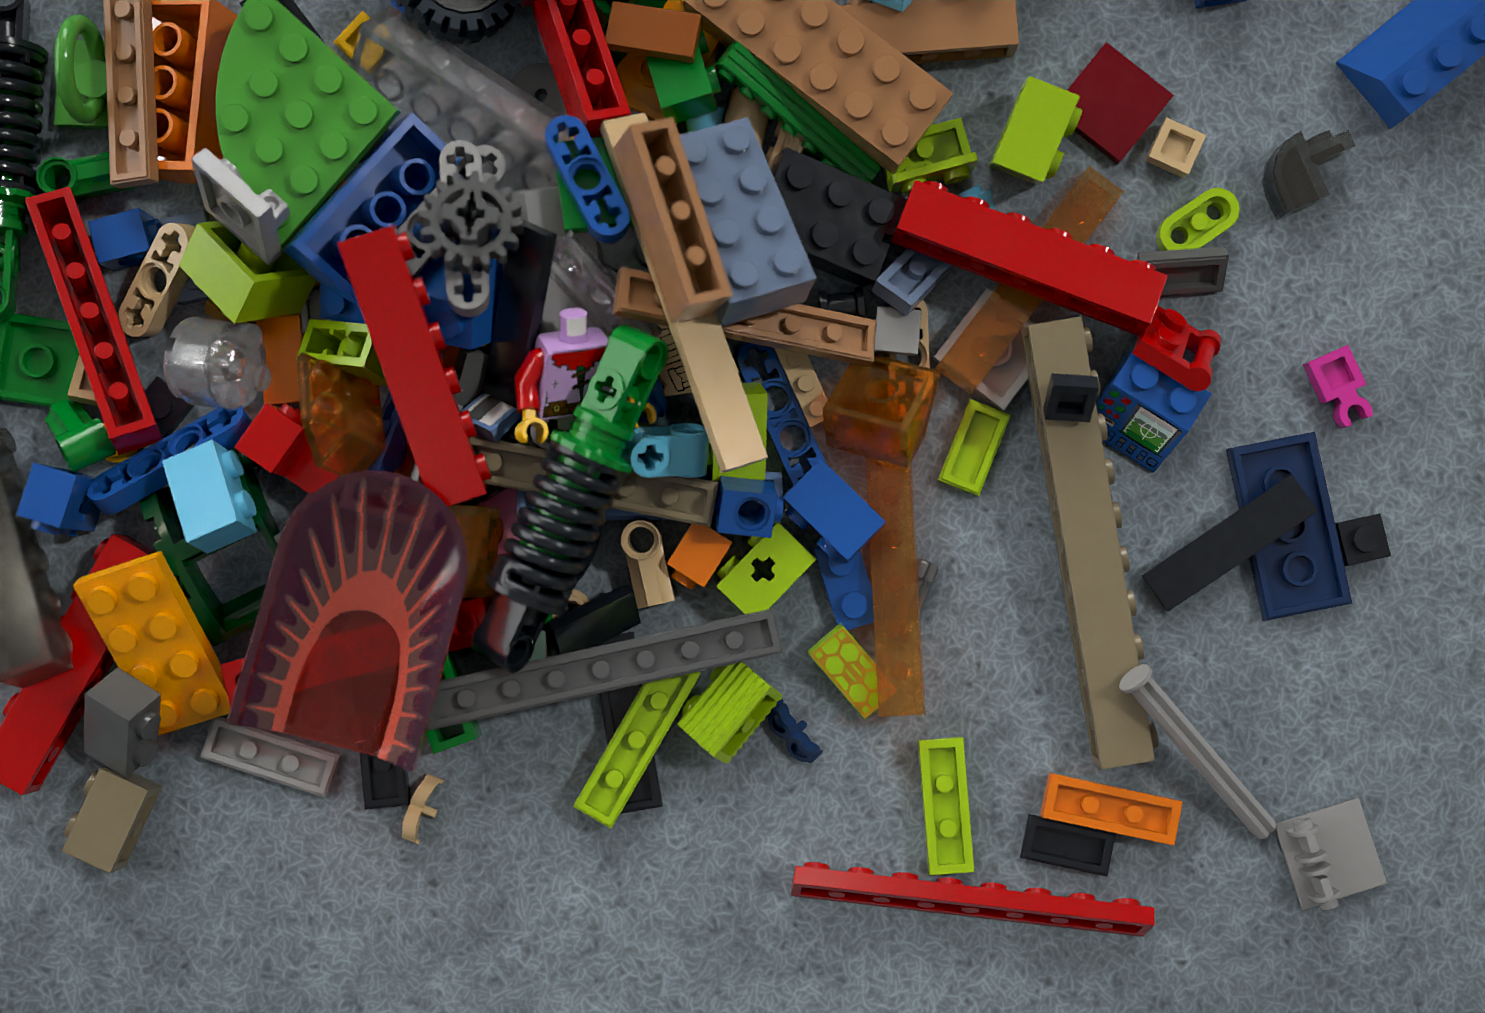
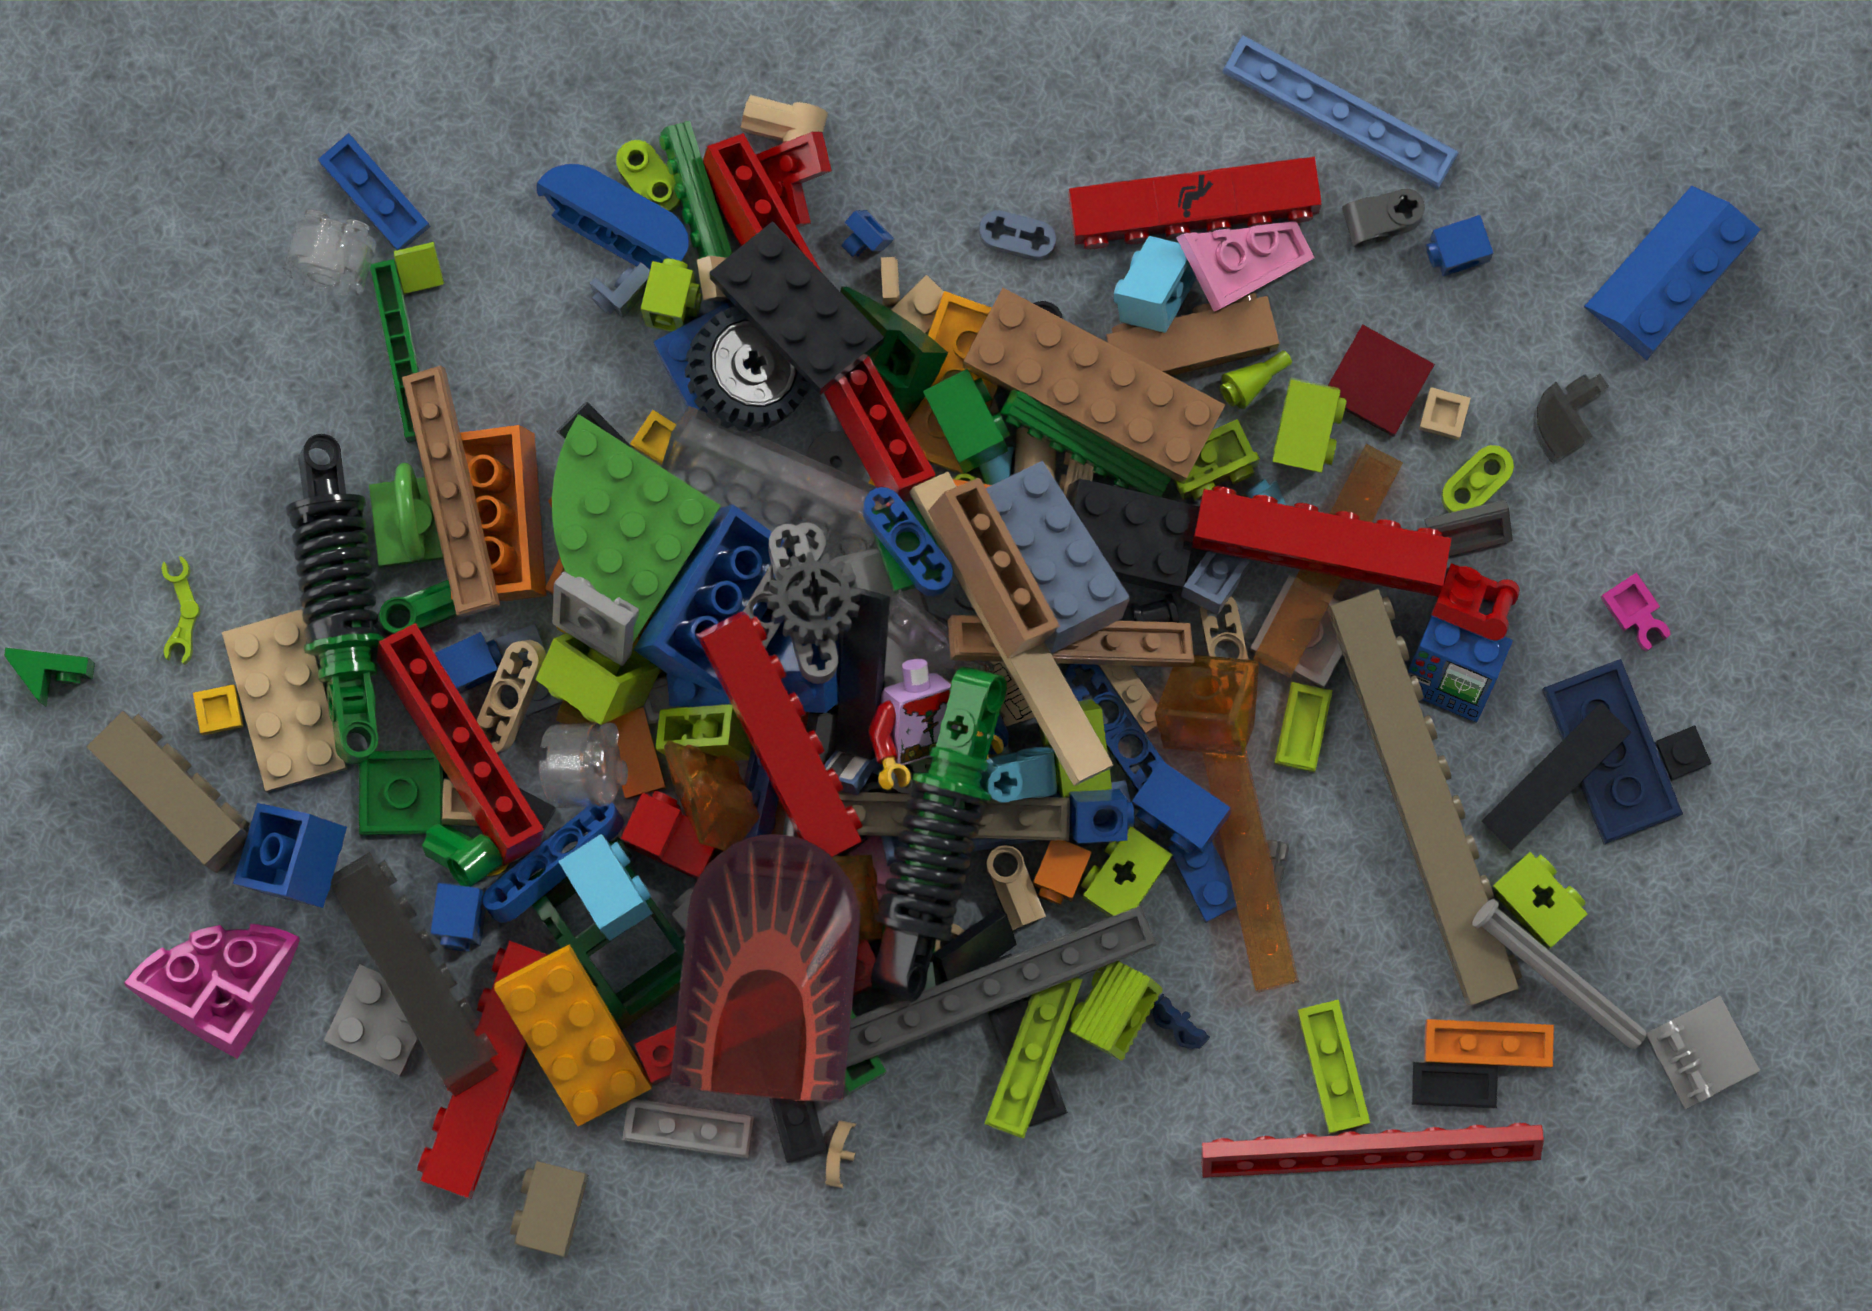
camera: 10 degrees left, 5 degrees down
(122, 723) = (552, 1114): dark grey brick -> none
(653, 32) = (940, 393): dark orange tile -> none
(848, 668) = (1220, 953): lime tile -> none
(897, 332) = (1211, 631): light grey tile -> none
(977, 82) = (1244, 384): none -> lime cone
(1071, 397) = (1380, 665): black plate -> none
(1167, 658) = (1543, 923): none -> lime brick

